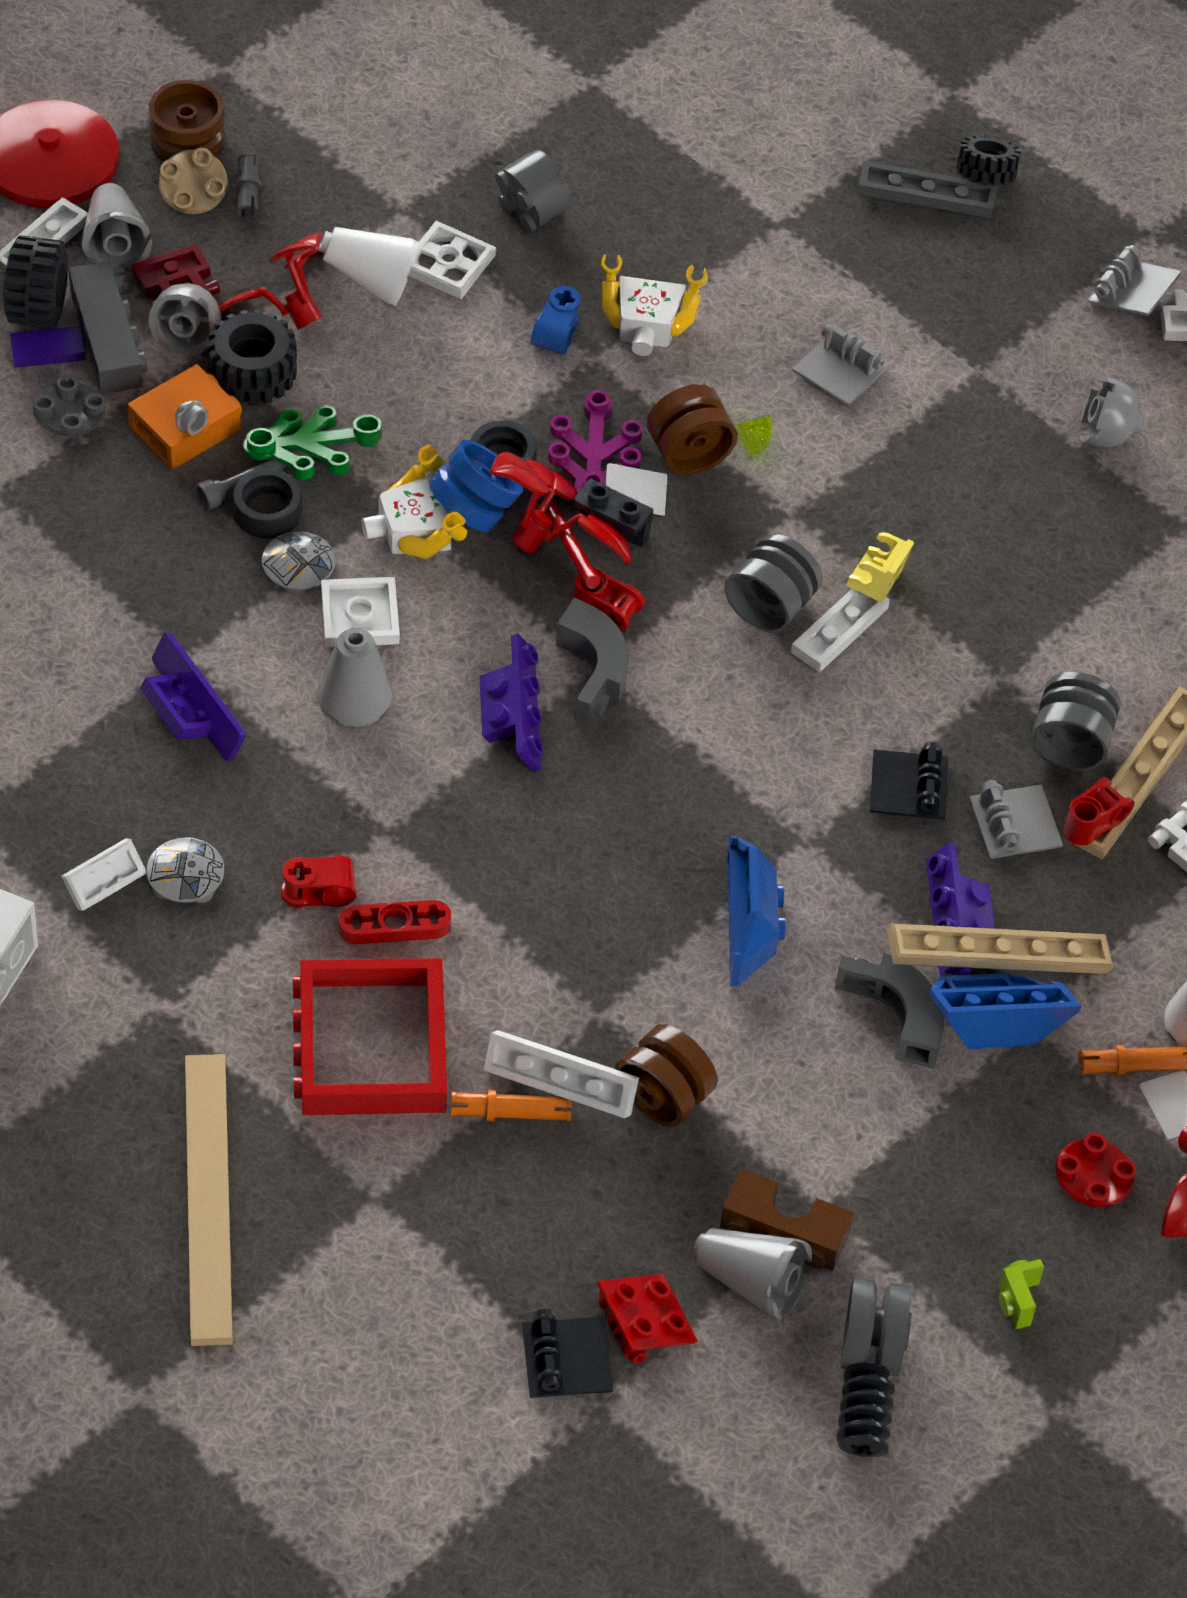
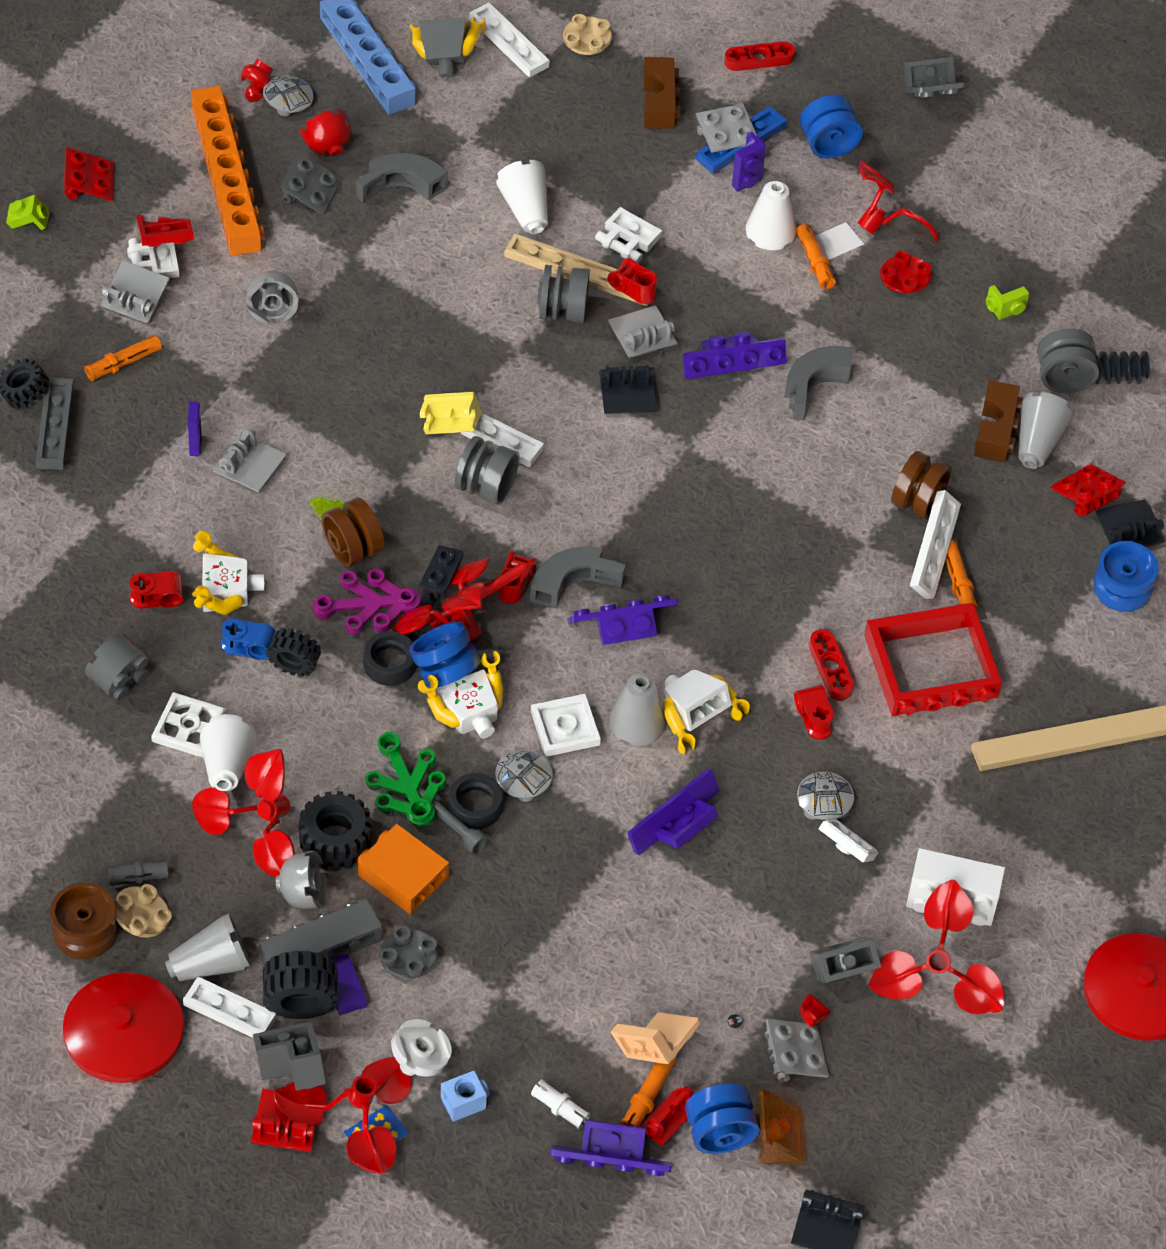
camera: 100 degrees left, 0 degrees up
(174, 268) = (246, 909): dark red plate -> none
(191, 417) = (423, 847): light grey plate -> none
(359, 746) = (696, 700): none -> white torso
(460, 1307) = (1125, 576): none -> blue wheel
(519, 351) = (293, 652): none -> black tyre
(639, 485) = (402, 571): white sticker -> none
(649, 247) = (158, 589): none -> red piece
(751, 909) = (767, 461): blue wedge -> none
(885, 301) = (194, 429): none -> dark purple tile
(999, 948) = (762, 323): tan tile -> none
(1002, 1008) = (805, 318): blue wedge -> none
(1021, 255) = (112, 362): none -> orange pin

